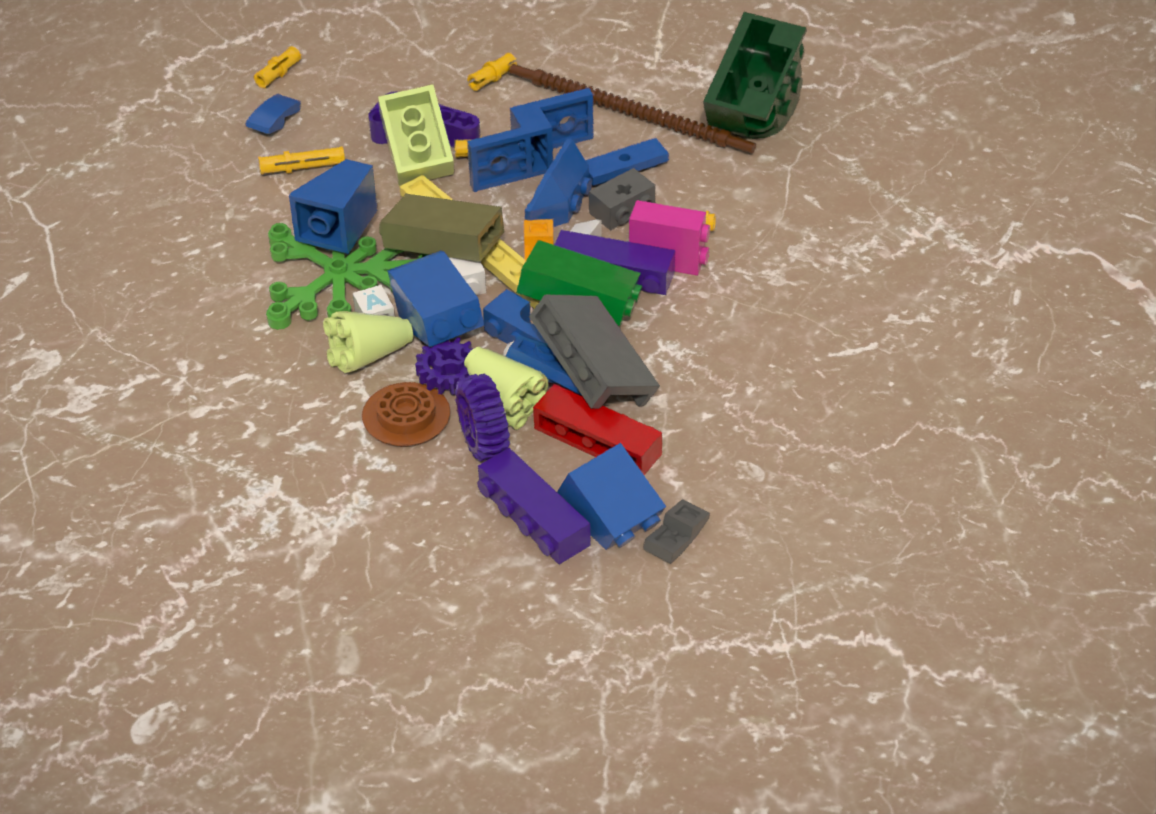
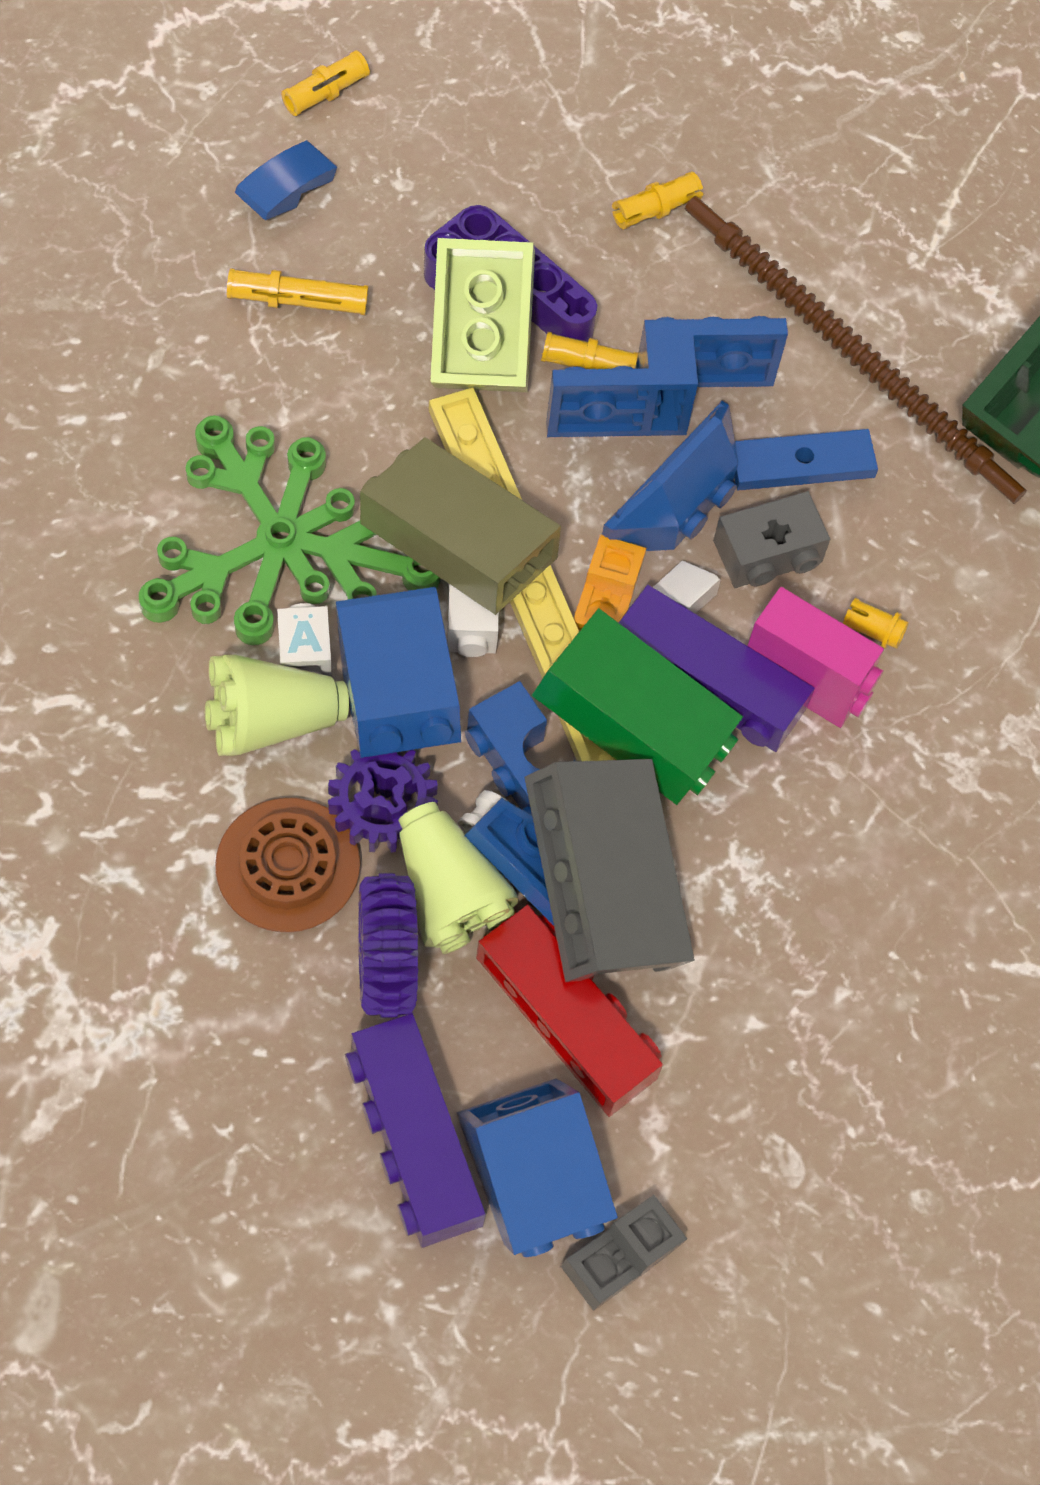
camera: 10 degrees right, 20 degrees up
(335, 206) = (304, 432): blue slope -> none

